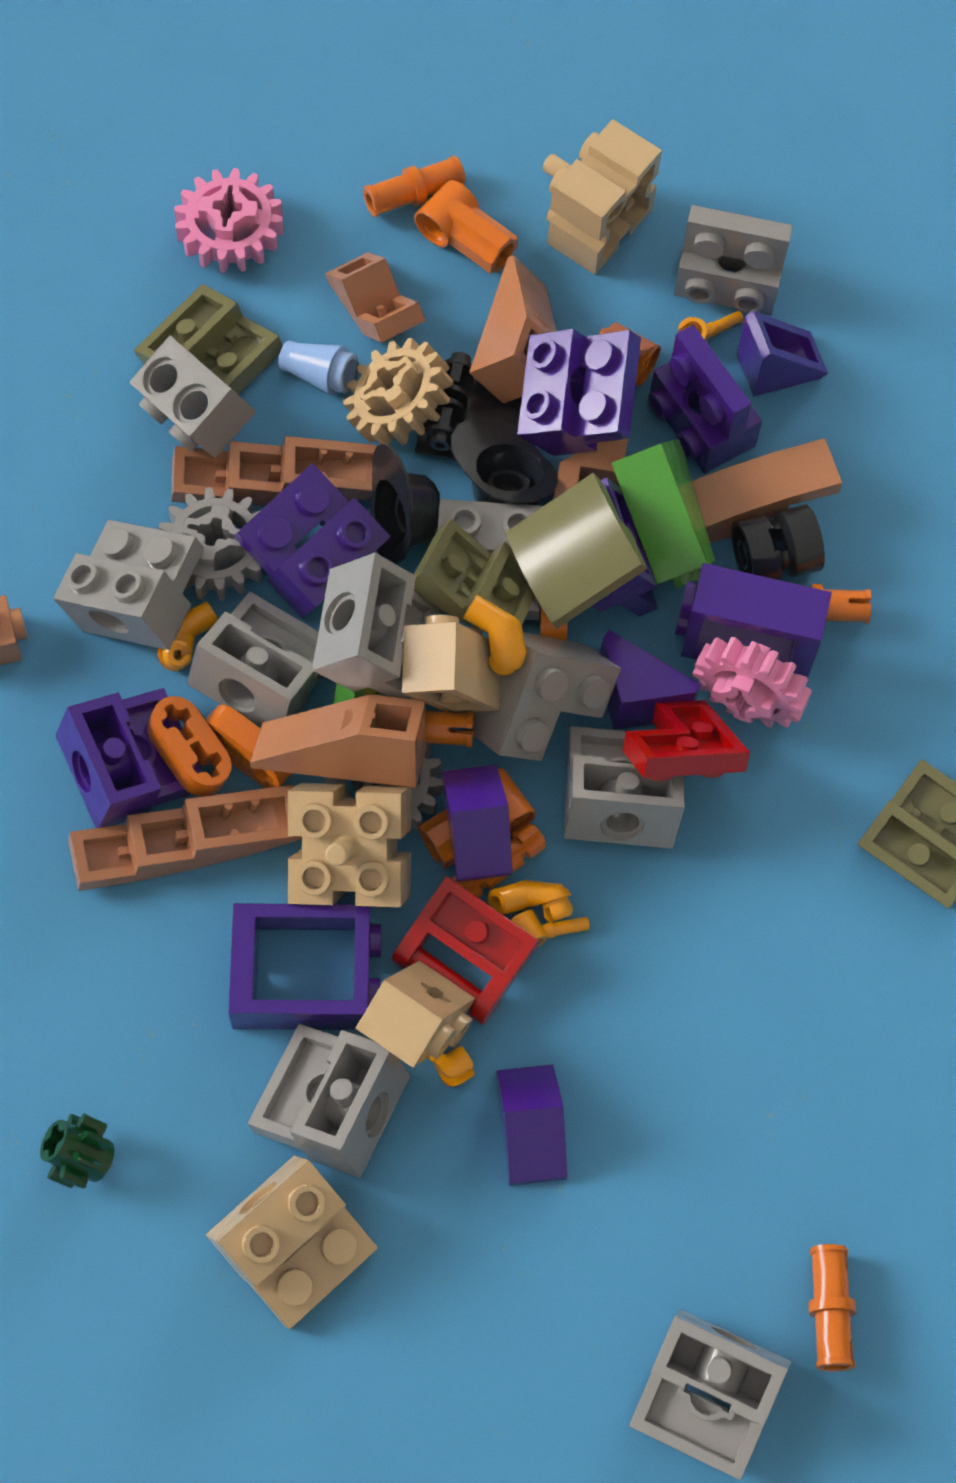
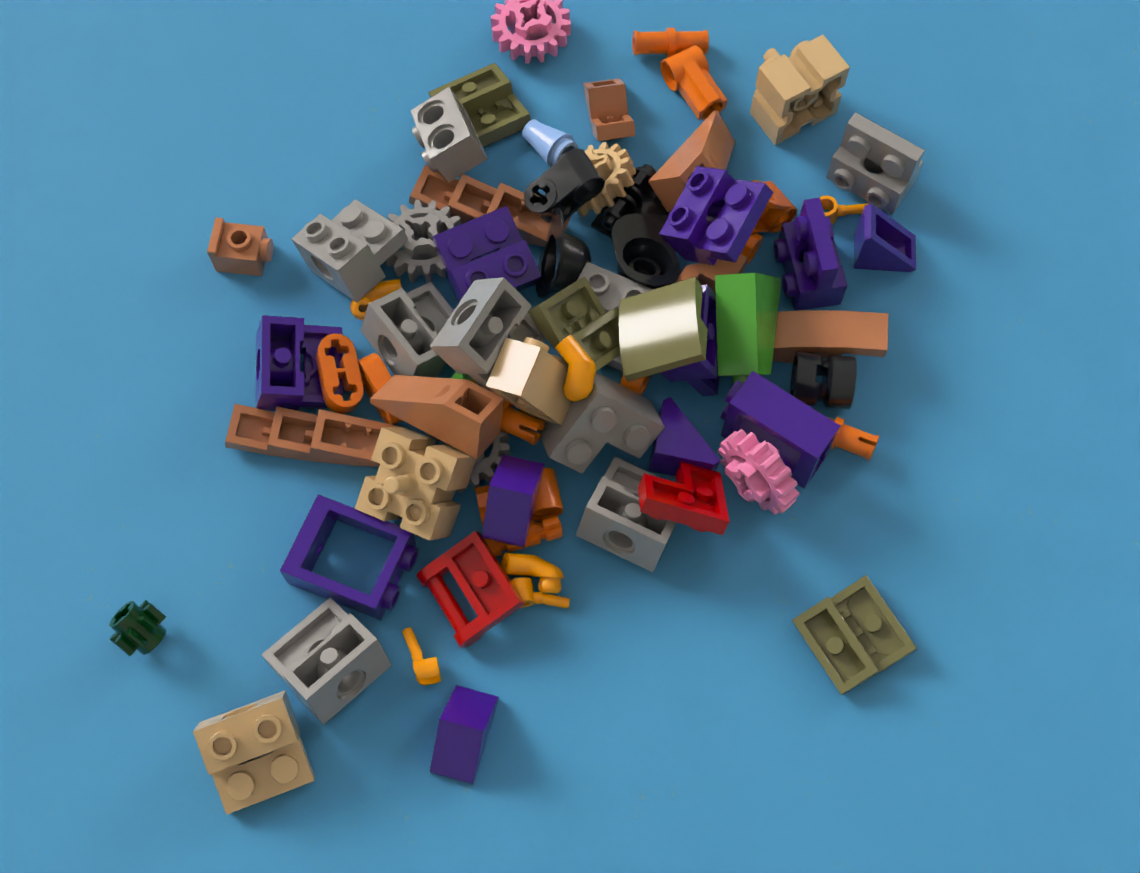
camera: 25 degrees right, 0 degrees up
(377, 411) = (566, 184): none -> black piece
(417, 1014) = (408, 622): tan brick -> none

